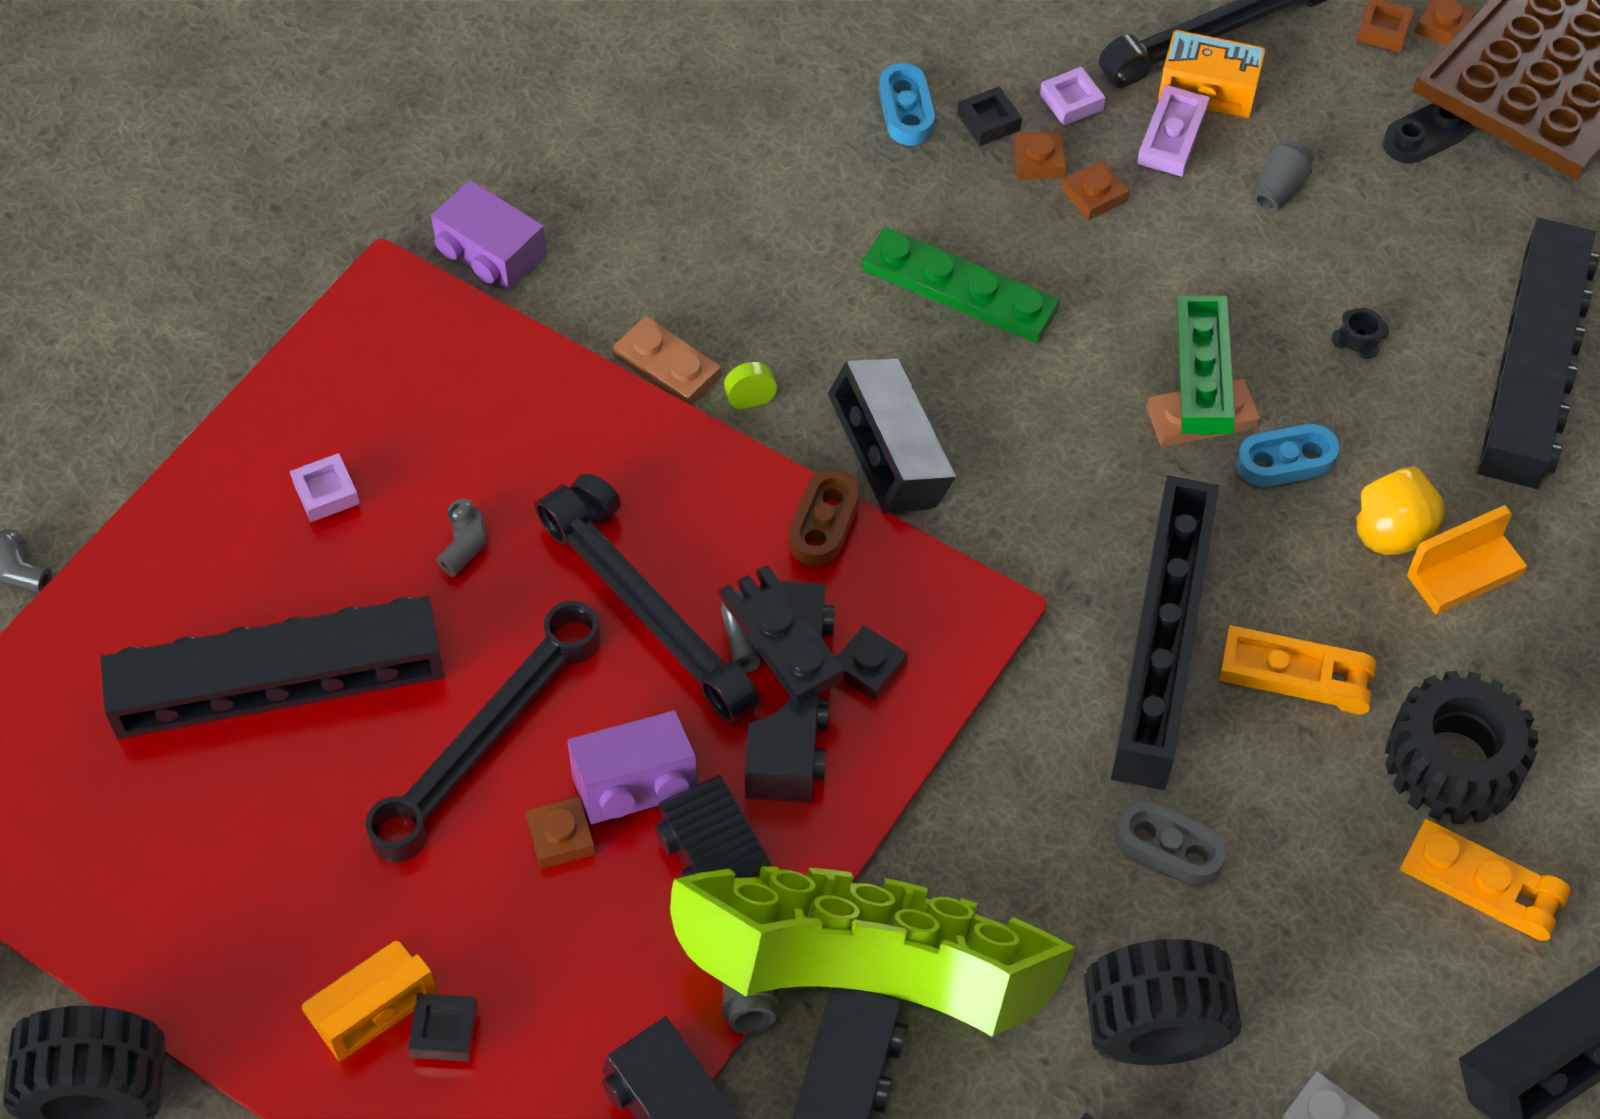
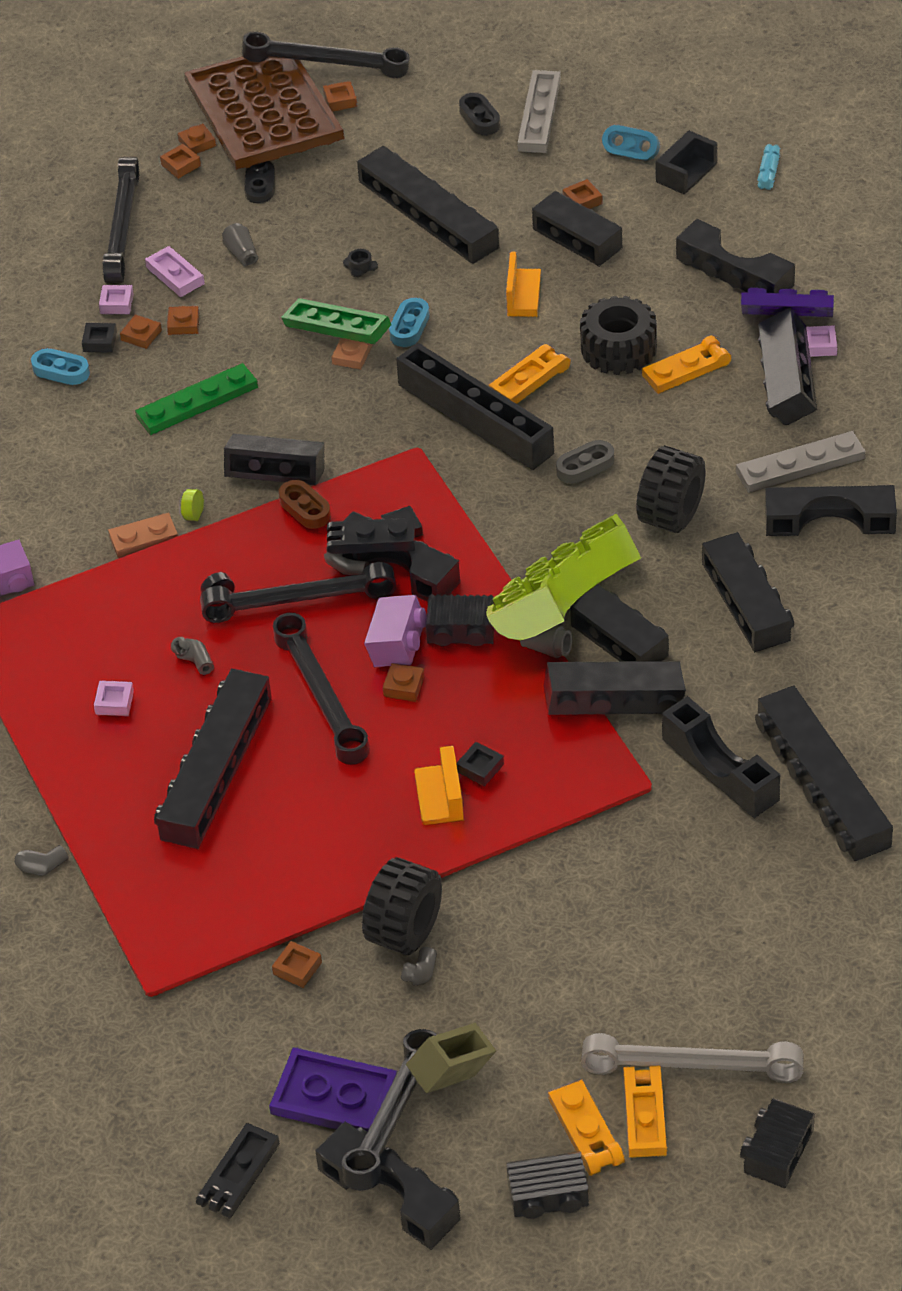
camera: 55 degrees left, 10 degrees down
(1216, 69) = (154, 234): light orange panel -> none
(1399, 512) = (482, 292): yellow hair -> none

